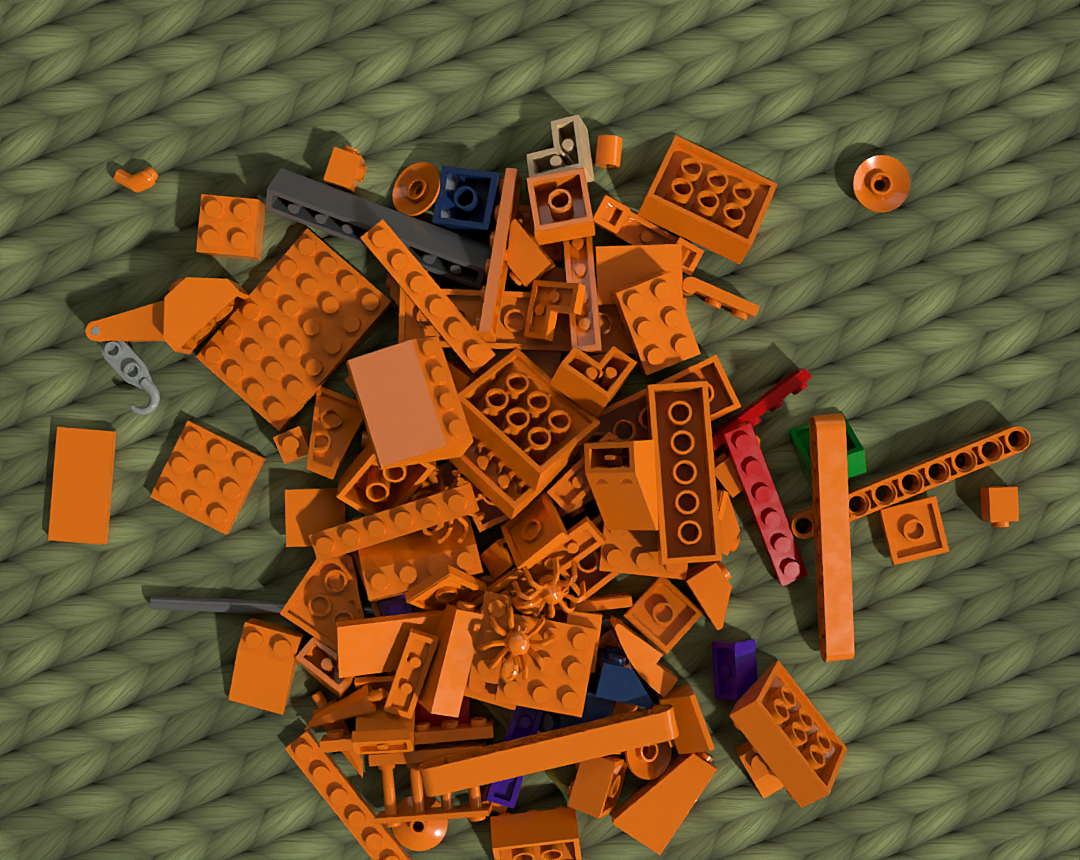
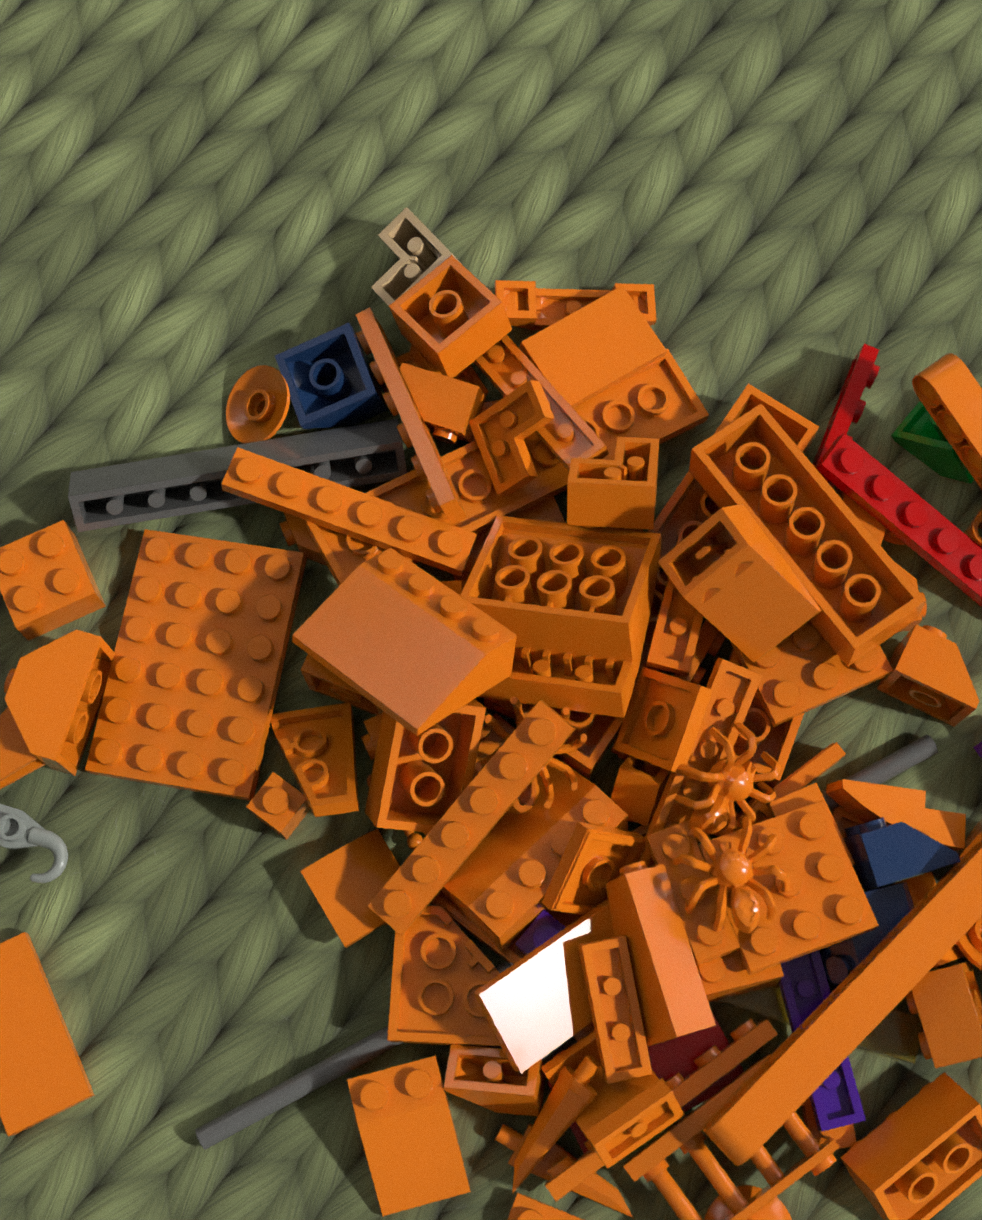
camera: 30 degrees left, 15 degrees down
(208, 477) = (186, 921): orange plate -> none
(345, 169) = (154, 429): orange brick -> none
(608, 151) = (467, 238): orange gear -> none
(655, 322) = (650, 385): orange brick -> none
(663, 614) = (890, 744): orange tile -> none
(708, 200) = (621, 228): orange slope -> none
(717, 297) = (707, 326): orange plate -> none
(892, 176) = (811, 86): orange dish -> none

